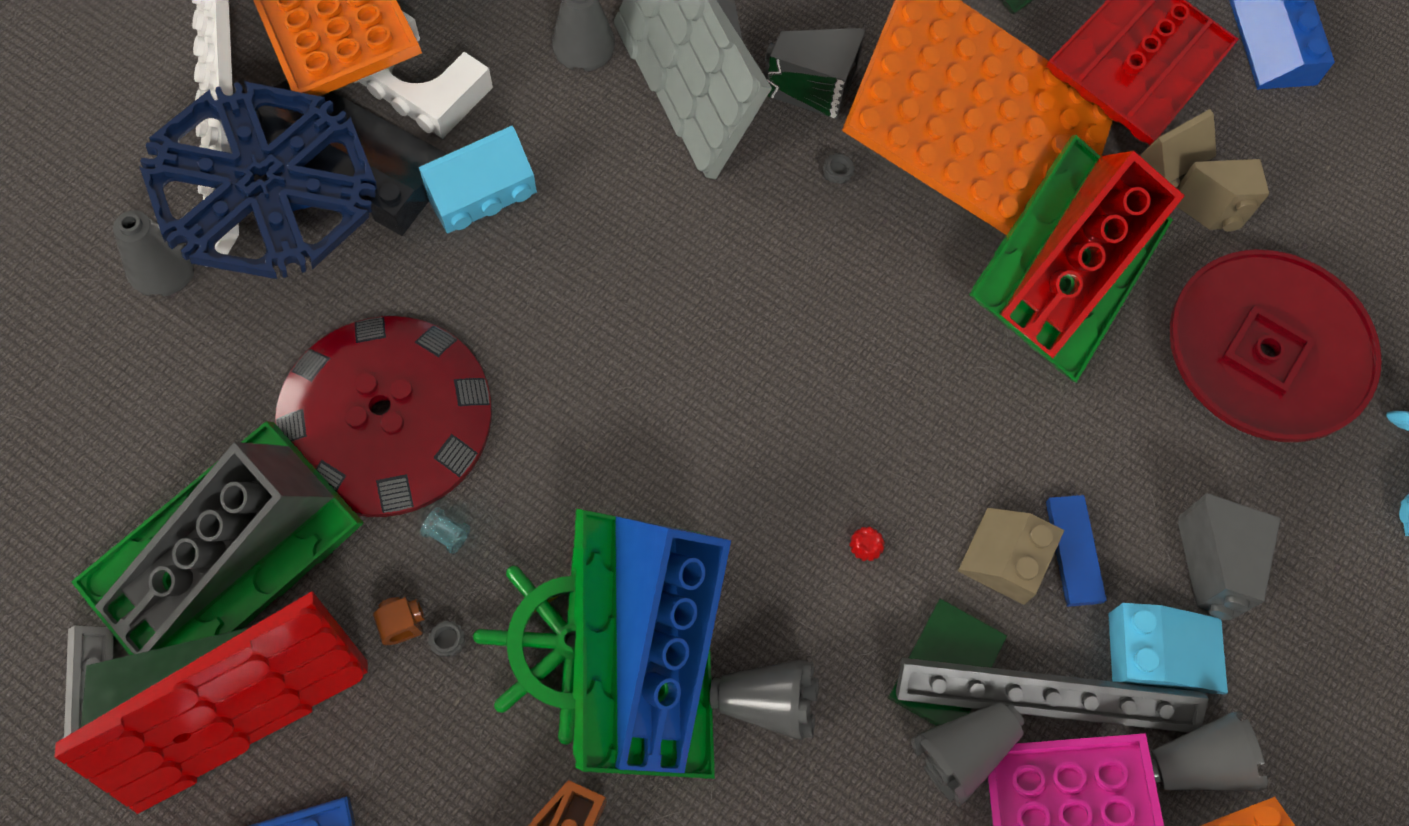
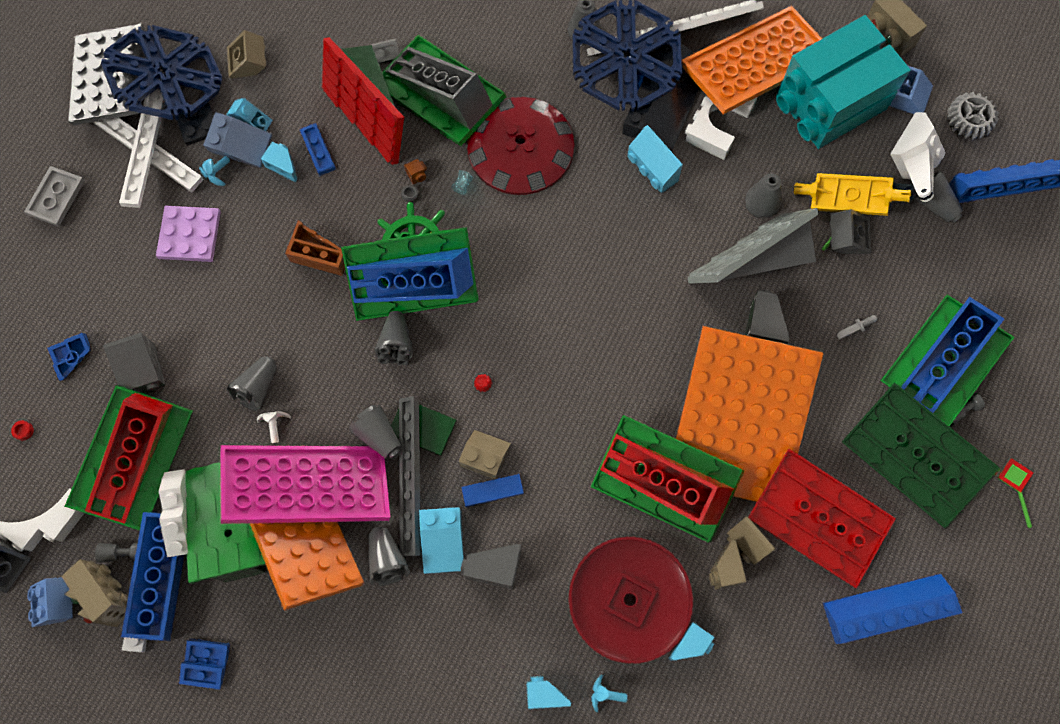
camera: 90 degrees right, 5 degrees up
(1344, 262) = (693, 643): none -> medium azure slope

